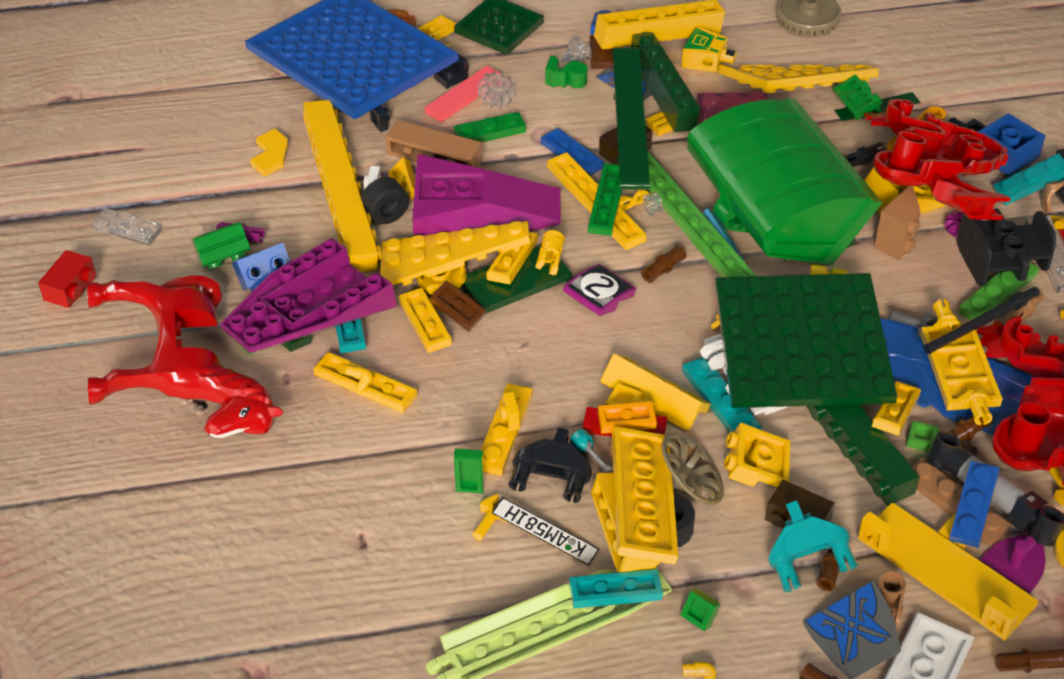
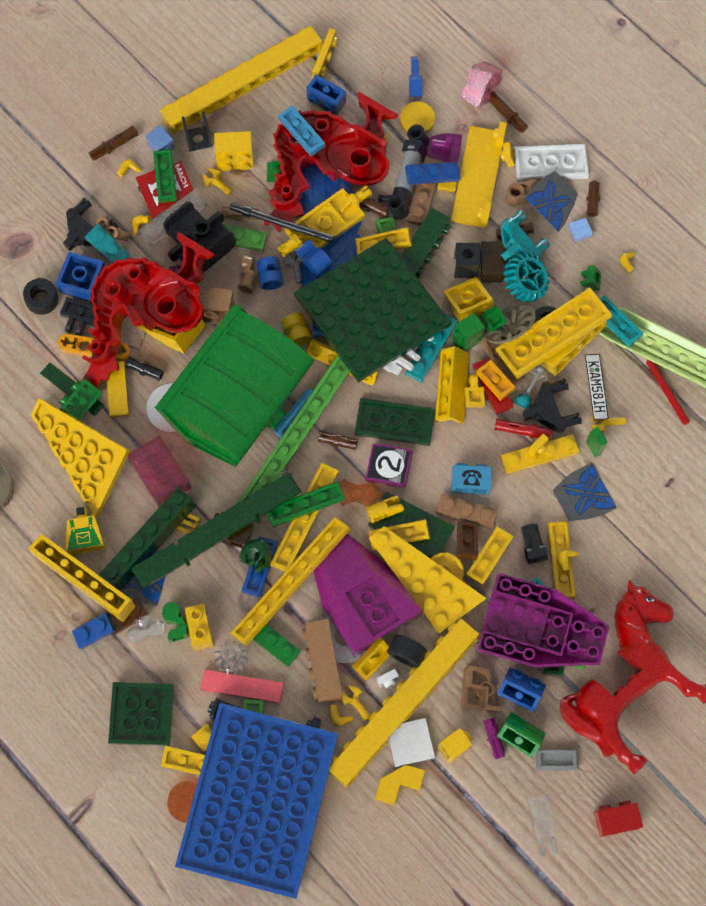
camera: 125 degrees left, 25 degrees up
(173, 267) = (556, 760): none -> light grey tile
(260, 188) = (455, 745): none -> yellow brick
(295, 240) = (478, 691): none -> medium nougat slope
(297, 178) = (411, 743): none -> white tile
(372, 138) = (335, 716): none -> yellow animal
(384, 158) = (355, 702): none -> yellow bar
(396, 359) = (534, 549): none -> black piece
(420, 447) = (584, 495): none -> sticker
(433, 91) = (254, 705): none -> bright green tile
(463, 604) = (668, 392): none -> red bar
(492, 330) = (466, 511): none -> medium nougat plate
(524, 345) = (471, 479): none -> dark azure brick
(536, 157) = (290, 581): none -> yellow tile
(545, 82) = (198, 627): none -> yellow brick
(550, 423) = (522, 429): none -> red pin
(584, 141) = (256, 554): none -> dark green piece
(589, 253) = (364, 494): none -> clear orange tile
(649, 322) = (394, 421): none -> dark green tile
(710, 422) = (468, 332): none -> green brick
(711, 453) = (493, 318): none -> green tile
(725, 523) = (521, 267): none -> teal gear
(788, 645) = (580, 229): none -> light blue tile
(829, 474) = (467, 260): none -> black piece
(853, 131) = (118, 392): none -> yellow tile
(906, 320) = (314, 259): none -> blue pin
(919, 292) = (269, 272): none -> blue wheel
(932, 278) = (248, 275): none -> medium nougat connector
(963, 616) = (507, 154): none -> yellow plate
(1003, 104) = (46, 305): none -> black tyre

